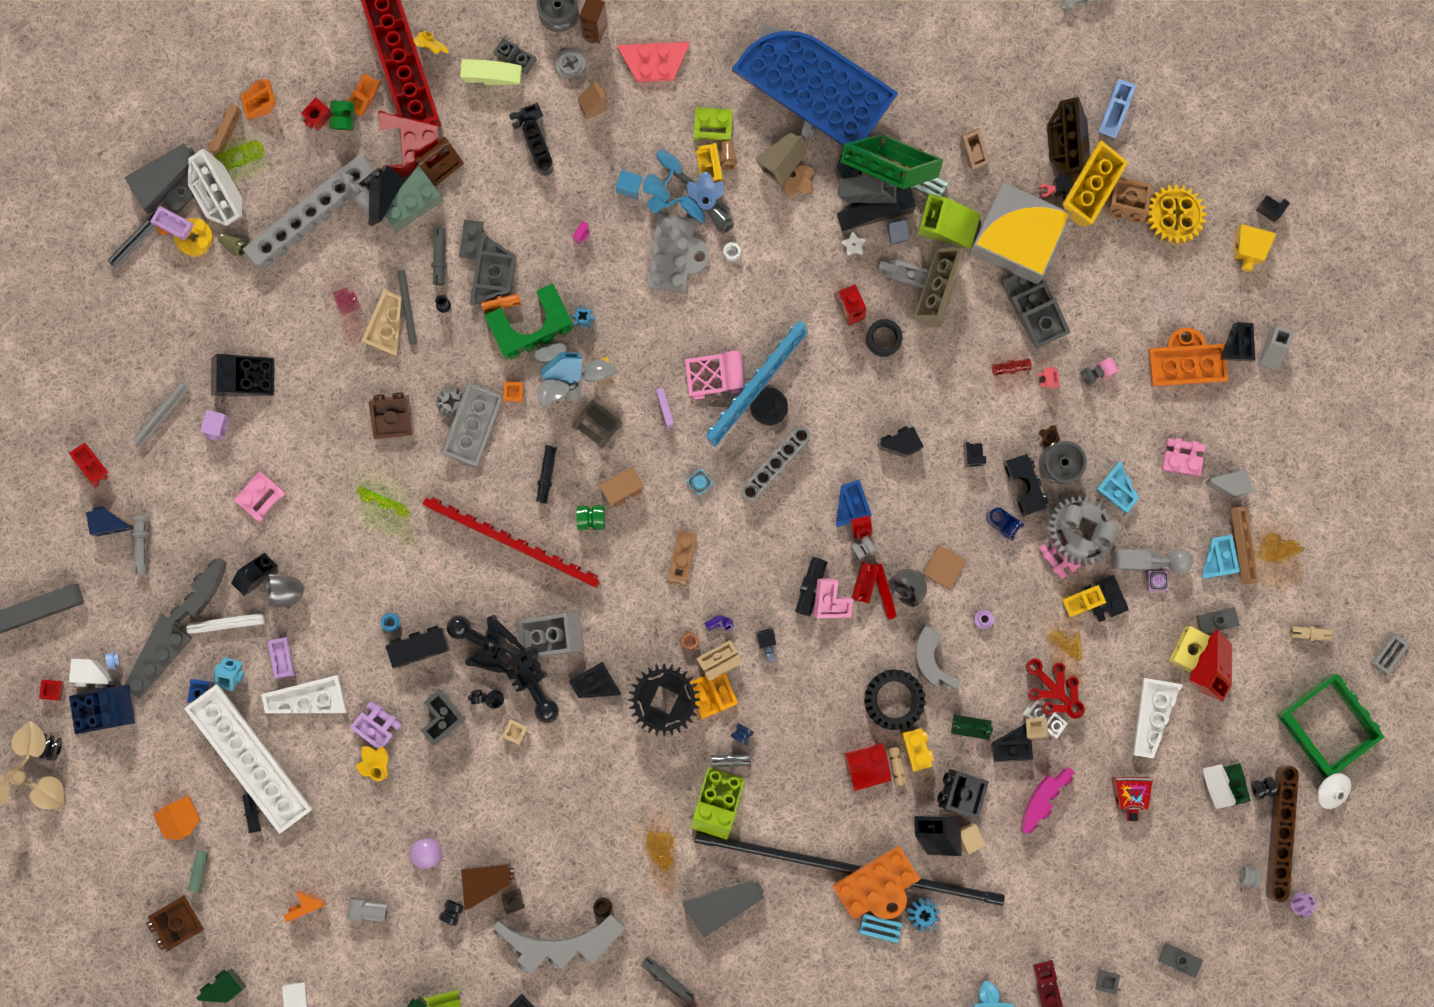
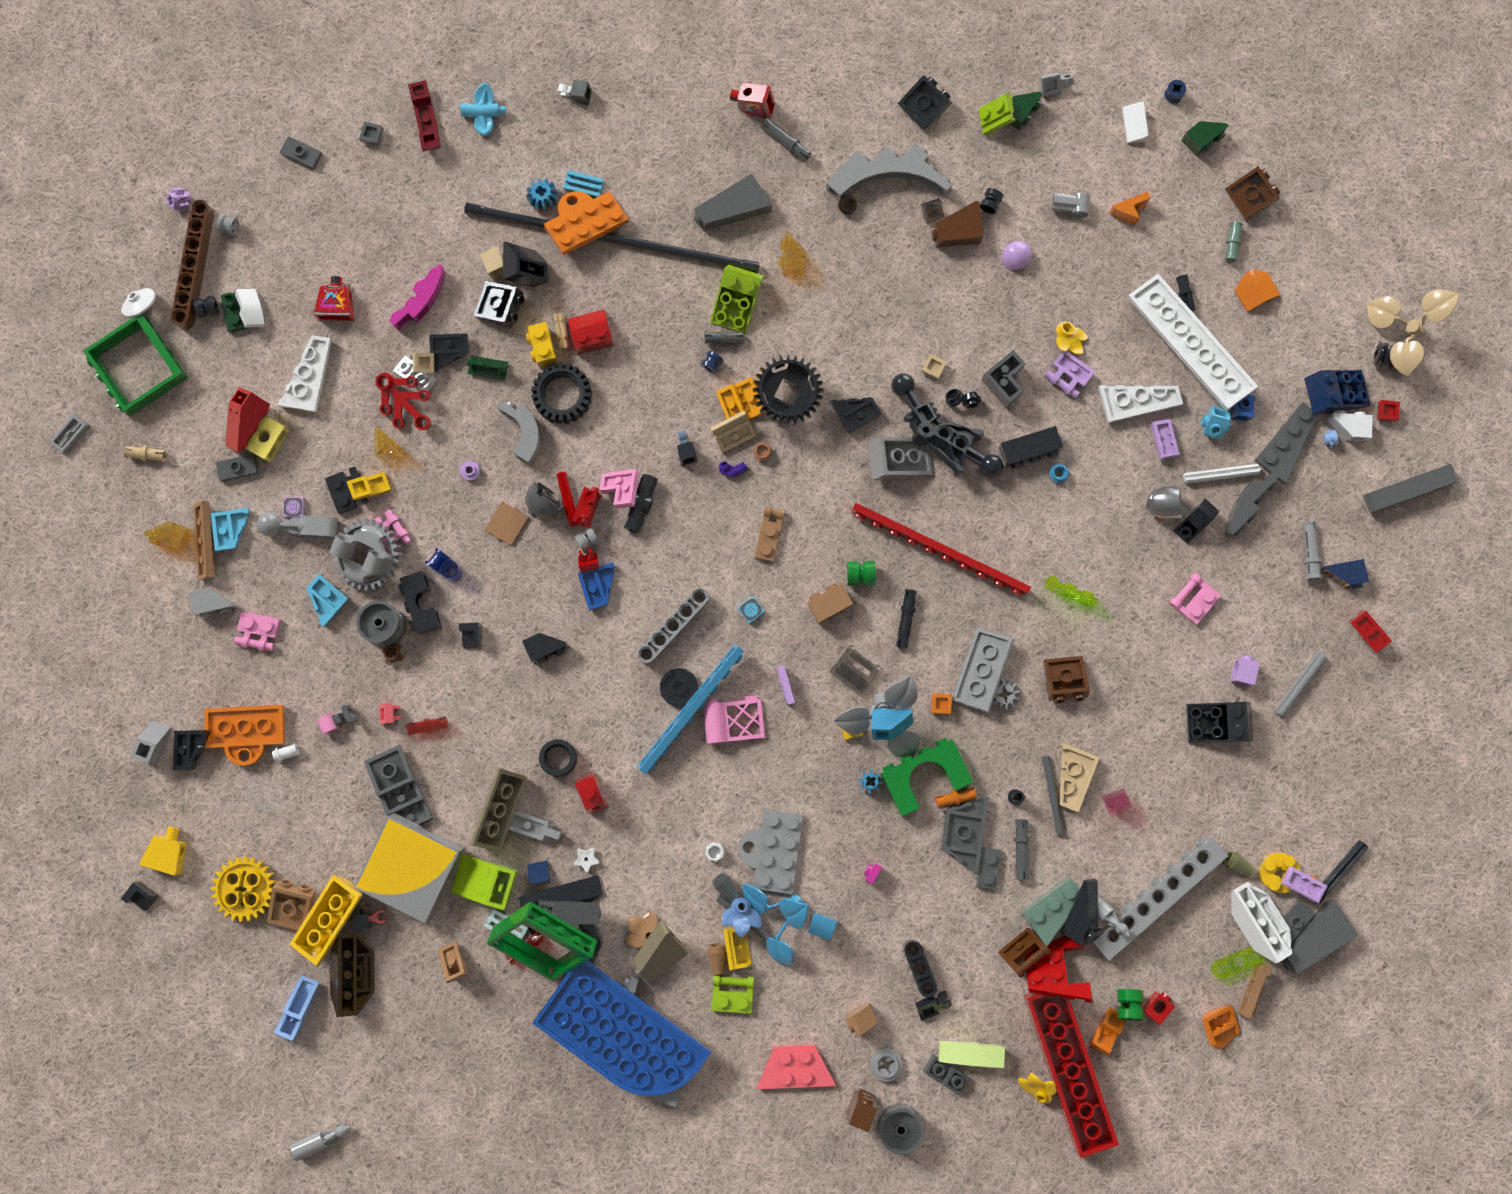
camera: 170 degrees left, 0 degrees up
(1147, 340) = (285, 753): none -> white pin

